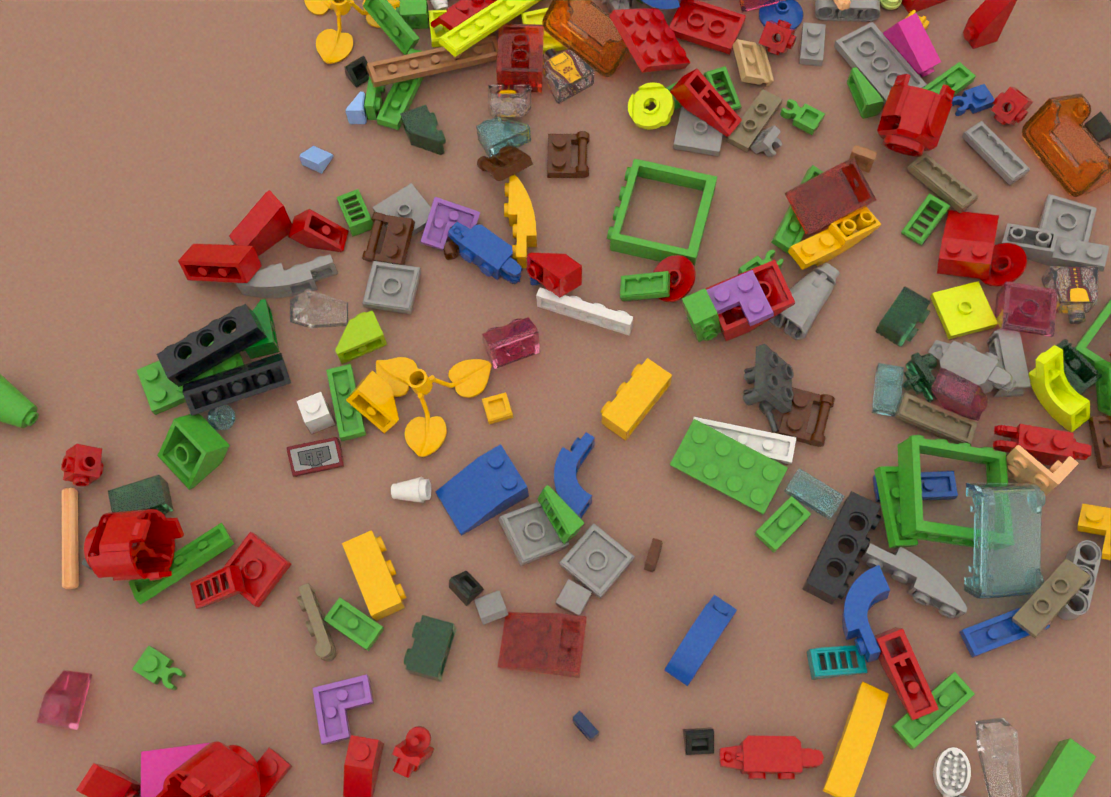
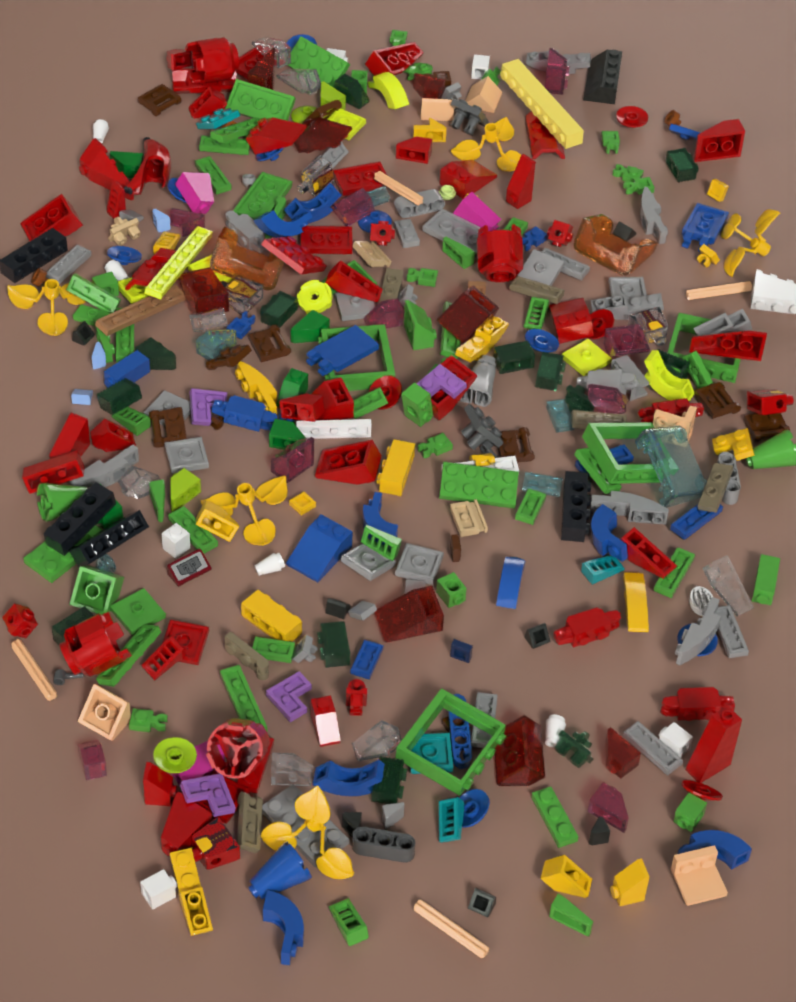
camera: 30 degrees left, 20 degrees down
(111, 642) = (105, 713): none -> light nougat slope
(126, 757) = (172, 749): none -> lime dish
(210, 302) = (57, 499): none -> bright green cone
(227, 498) = (137, 610): none -> bright green plate
(281, 690) = (241, 695): none -> bright green plate
(328, 338) = (157, 496): none -> bright green slope
(353, 175) = (119, 396): none -> clear green brick
(379, 46) = (88, 314): none -> bright green plate
(379, 142) = (131, 367): none -> blue brick
(388, 639) = (304, 649): none -> light grey tile
(461, 687) = (366, 659): none -> blue plate
(520, 300) = (283, 434): none -> green slope
(544, 120) = (242, 325): none -> blue plate
(562, 233) = (293, 385): none -> green slope
(580, 371) = (350, 463): none -> red slope
(599, 271) = (336, 400): none -> red slope
(600, 110) = (279, 309): none -> clear green brick
(617, 610) = (451, 590): none -> bright green brick
(624, 148) = (309, 328): none -> green slope
(643, 201) = (342, 350): none -> blue tile
(692, 512) = (468, 518): none -> tan plate
(706, 378) = (438, 444): none -> bright green plate
(727, 160) = (386, 312): none -> clear pink slope
(750, 427) = (483, 459): none -> yellow slope
(761, 192) = (418, 327): none -> bright green slope
(865, 278) = (514, 357): none -> clear green brick
(913, 265) = (542, 340): none -> blue dish
(962, 152) = (541, 268): none -> light grey plate

